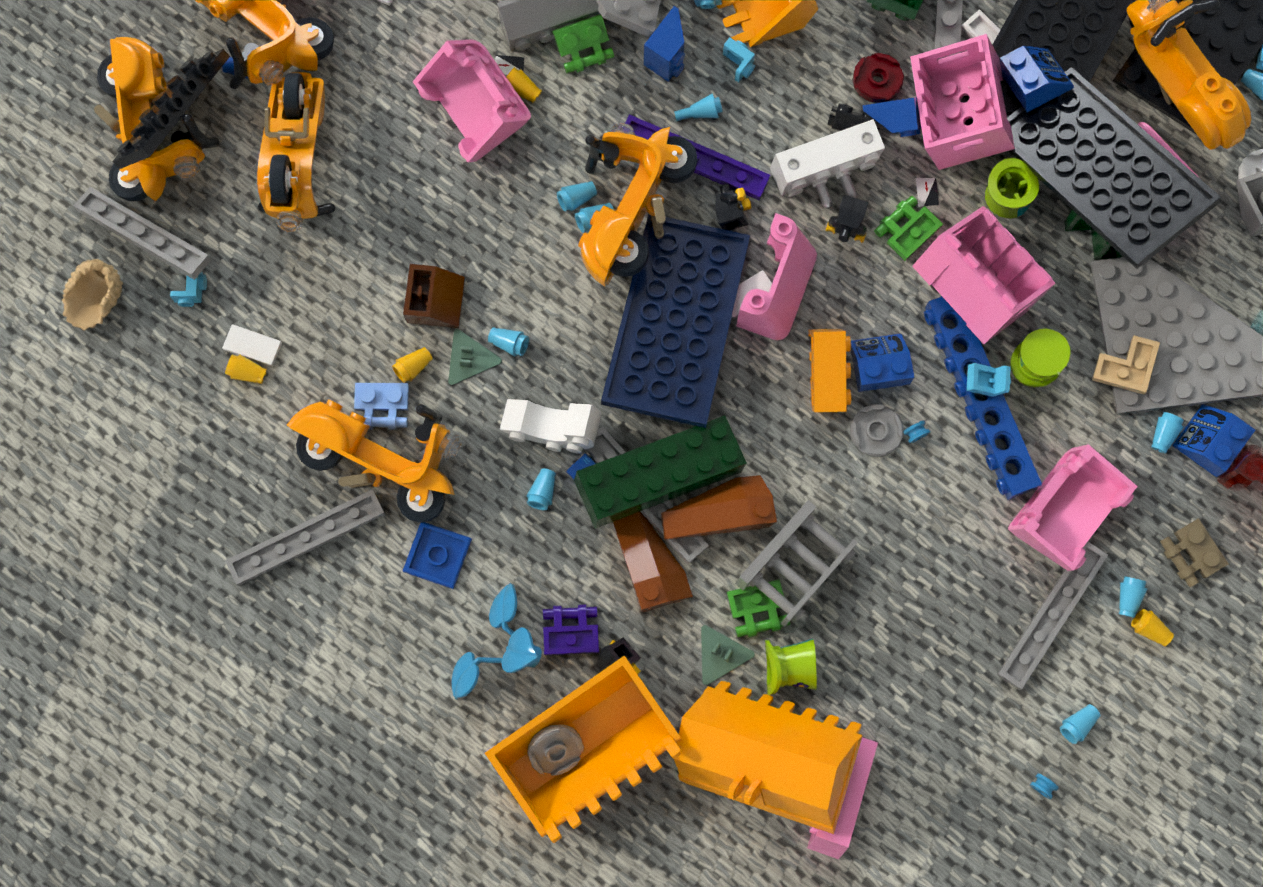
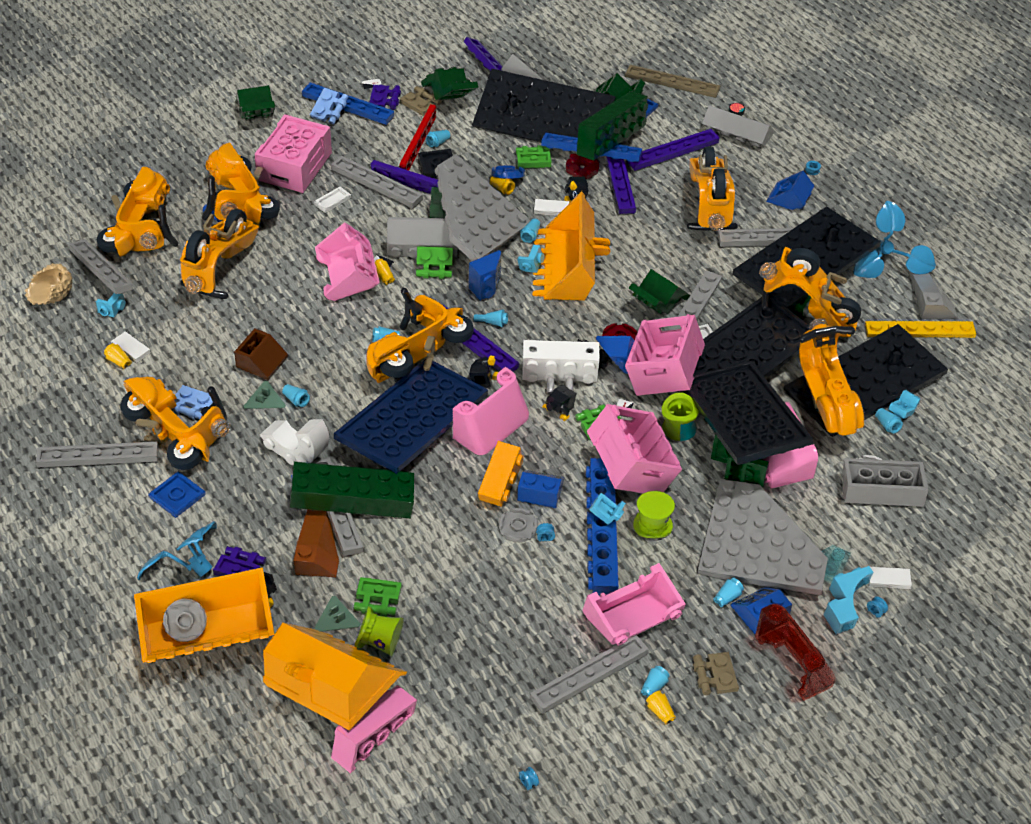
camera: 20 degrees right, 30 degrees down
(169, 107) = (147, 203): black plate -> none
(411, 365) = (226, 387): yellow cone -> none
(542, 490) = (267, 481): medium azure cone -> none
(728, 508) = (384, 531): dark orange wedge -> none
(741, 55) = (532, 298): medium azure bracket -> none
(787, 538) = (417, 558): light grey fence -> none
(1034, 76) = (722, 355): blue slope -> none
(1079, 724) = (576, 748): medium azure cone -> none
(1131, 373) = (716, 543): tan plate -> none

